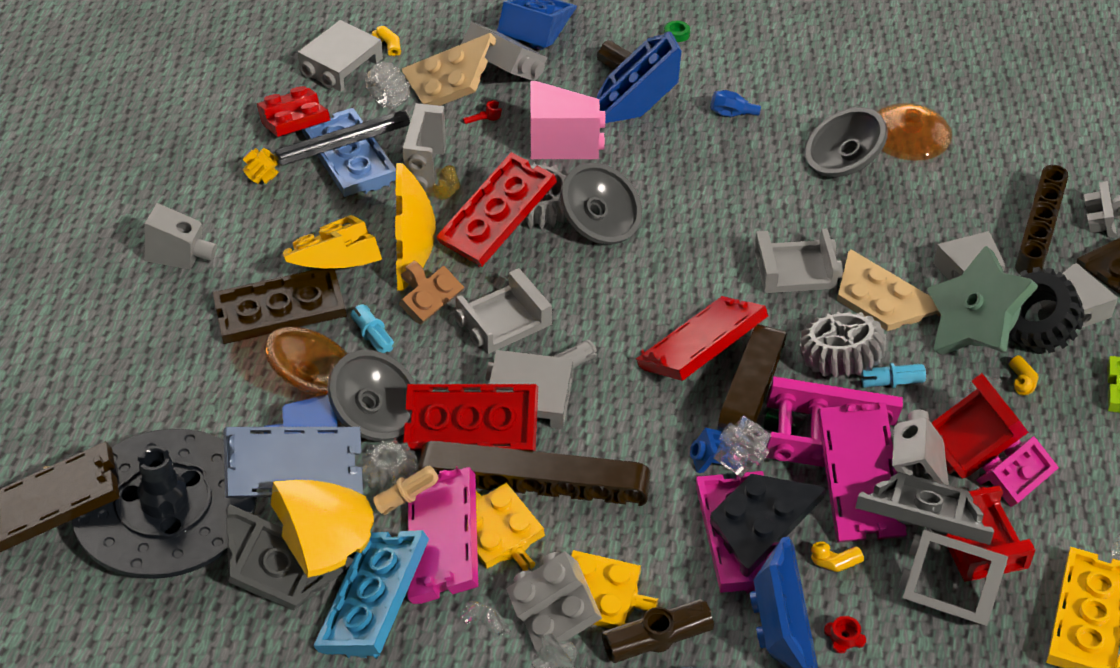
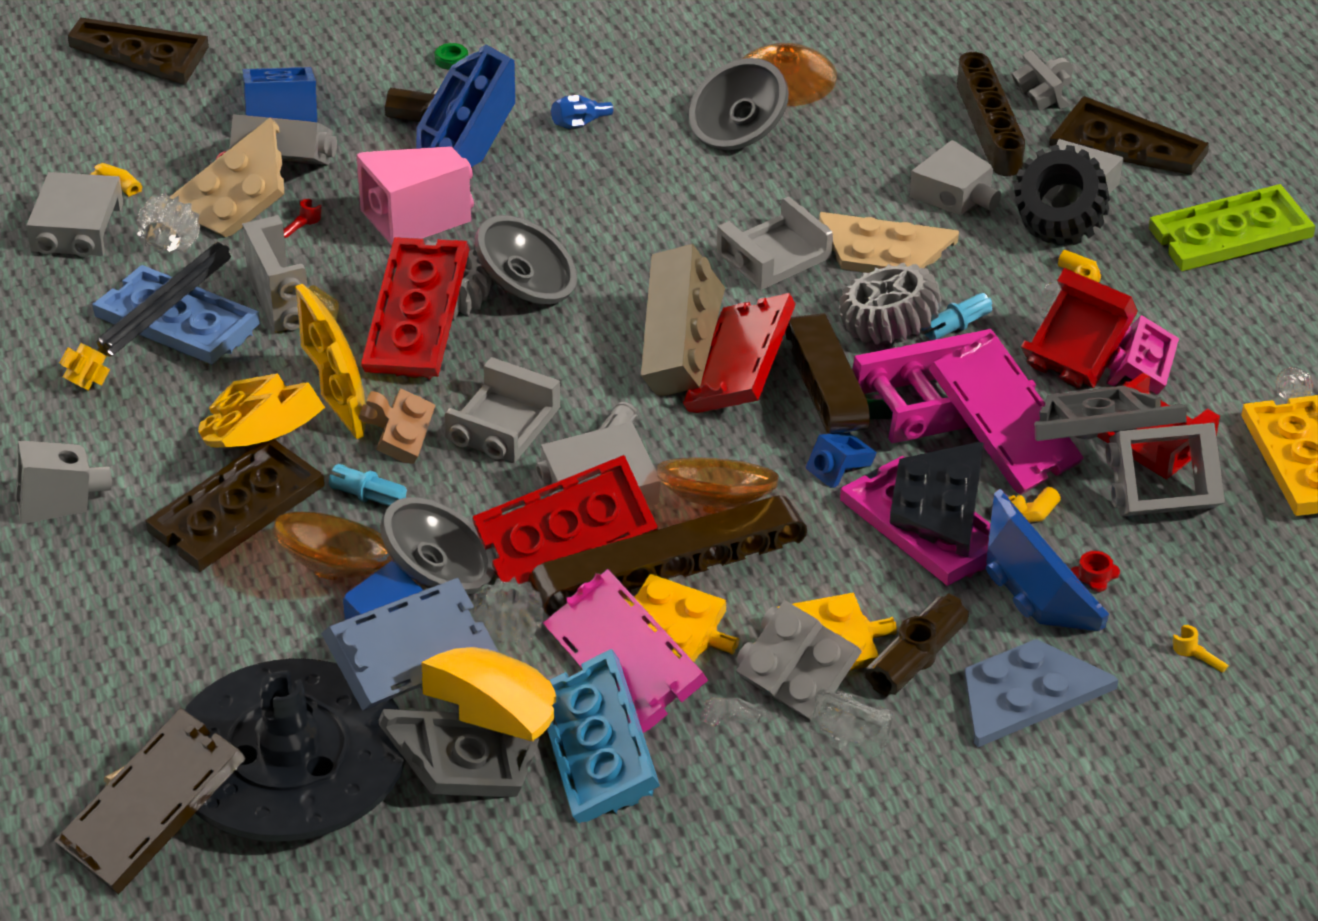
camera: 30 degrees left, 5 degrees down
(292, 111) = (72, 294): red plate -> none
(405, 490) = (552, 622): tan axle -> none
(606, 430) = (717, 481): none -> clear orange dish
(673, 294) = (679, 320): none -> dark tan wedge
(742, 446) = (874, 434): clear brick -> none
(919, 449) = (1046, 363): light grey torso -> none
(979, 305) = (1002, 211): sand green plate -> none

